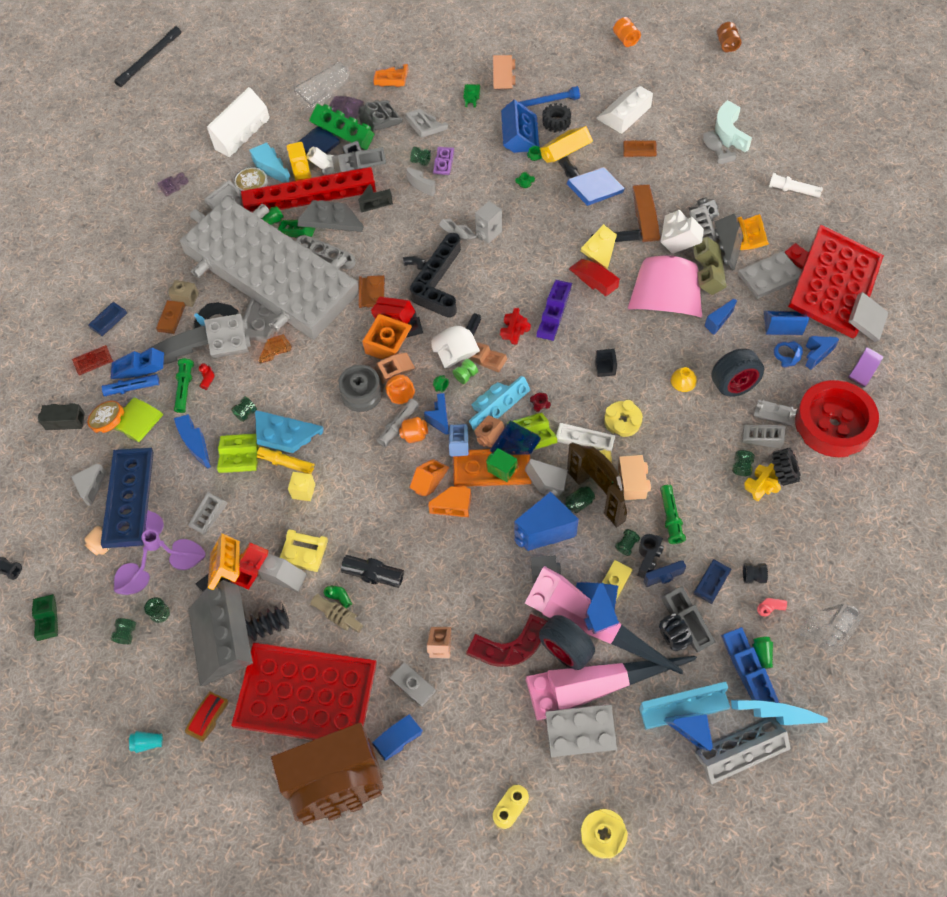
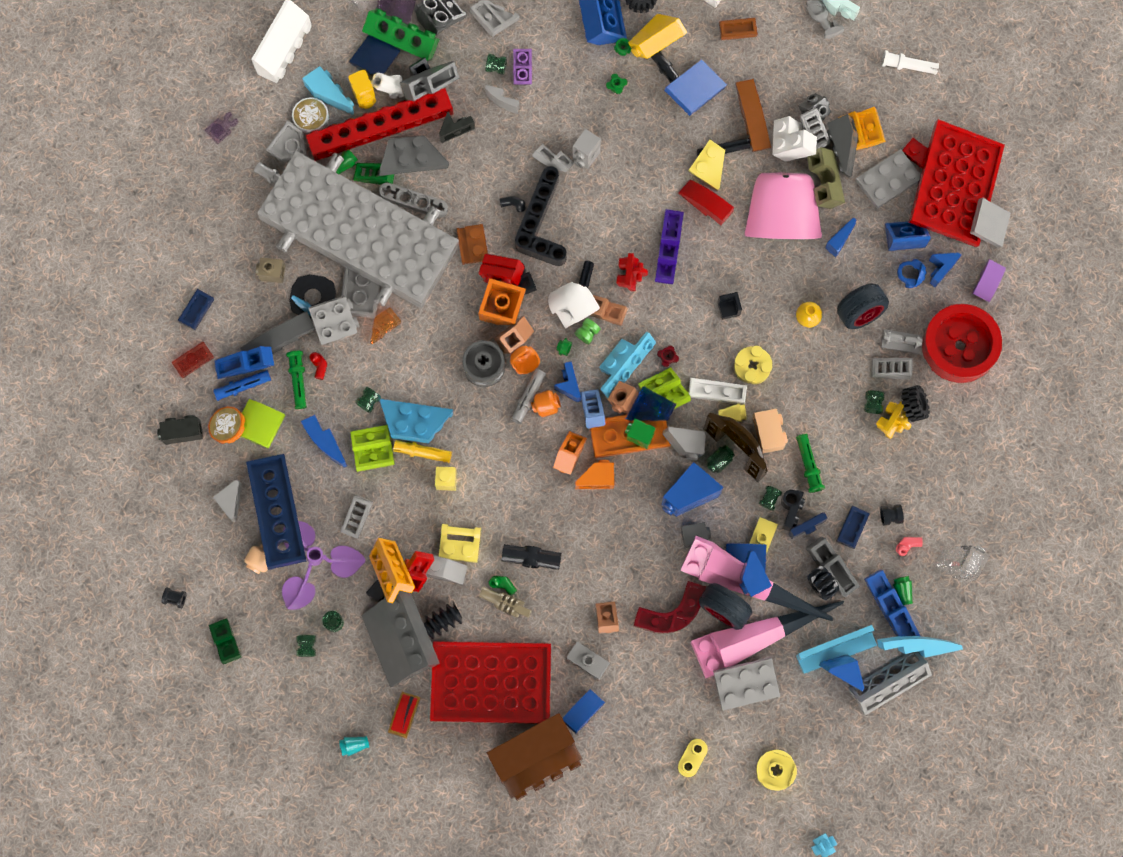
camera: 10 degrees left, 15 degrees up
(170, 317) = (263, 298): dark orange plate -> none

